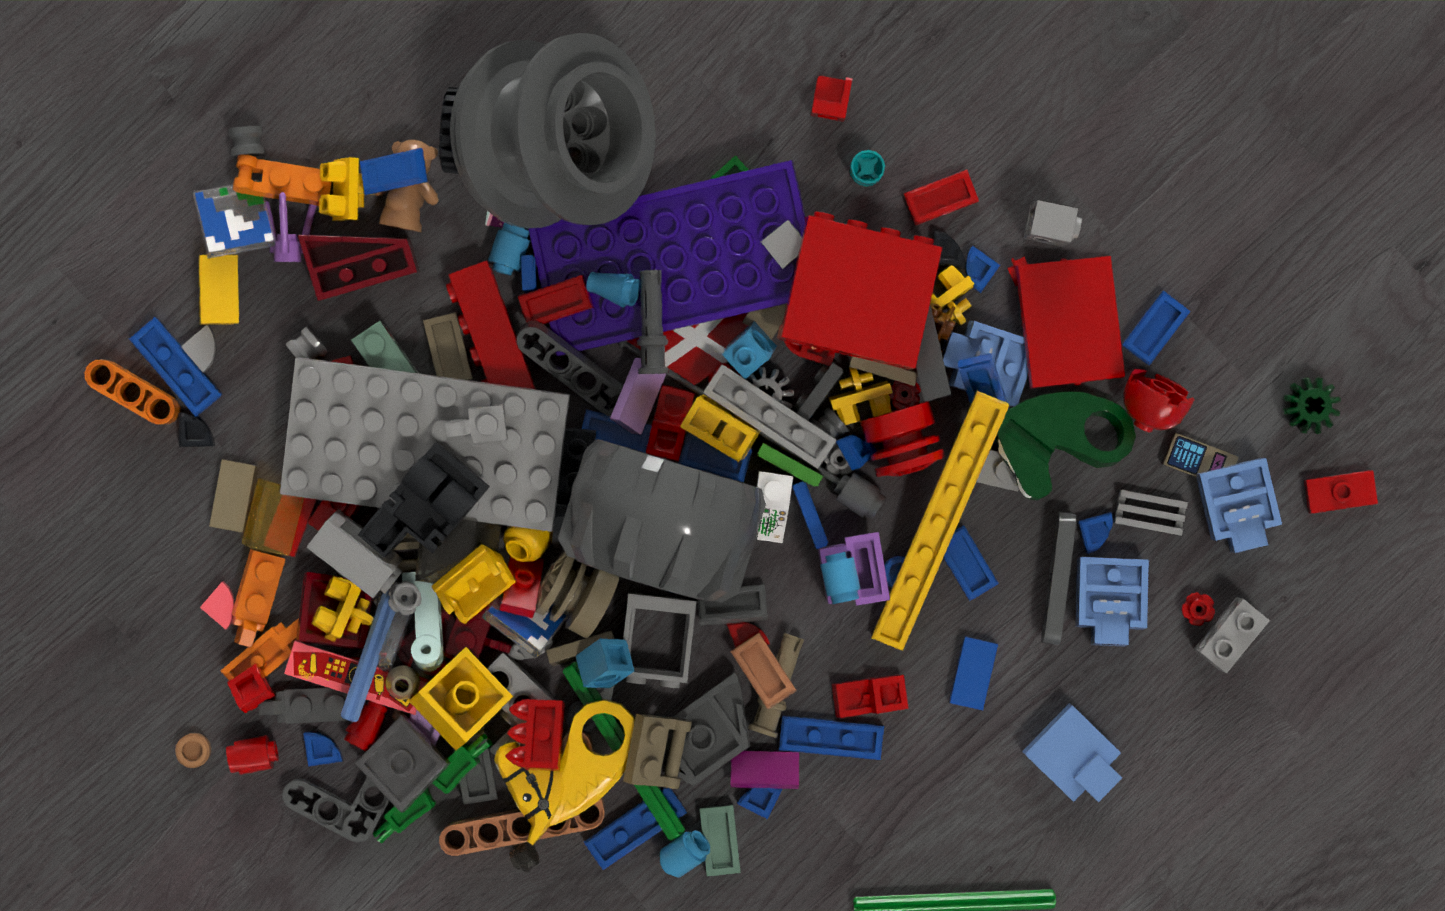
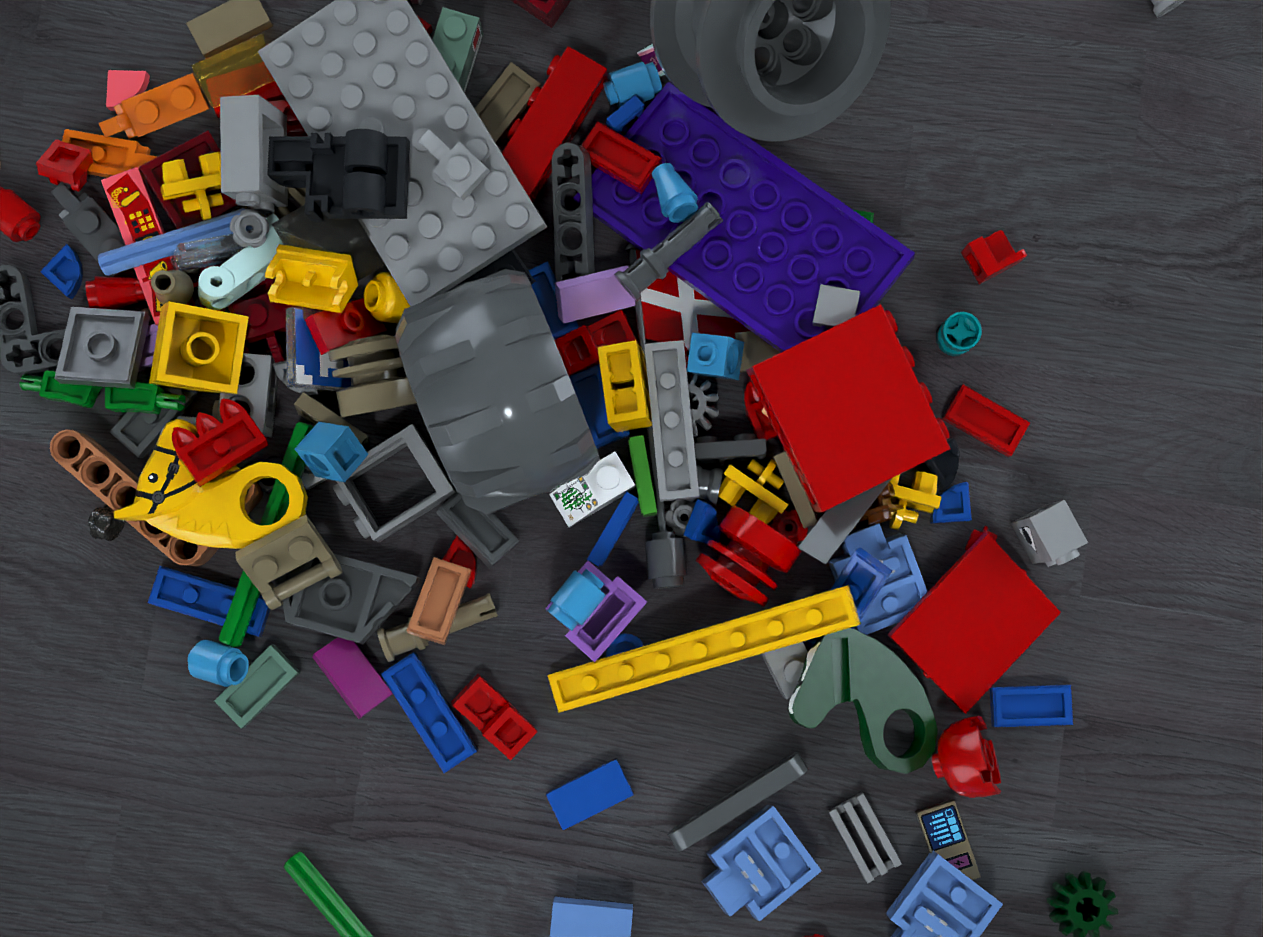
camera: 50 degrees right, 5 degrees down
(760, 800) = (321, 694): blue tile -> none
(968, 565) = (683, 709): blue tile -> none
(1095, 531) = (806, 800): blue tile -> none

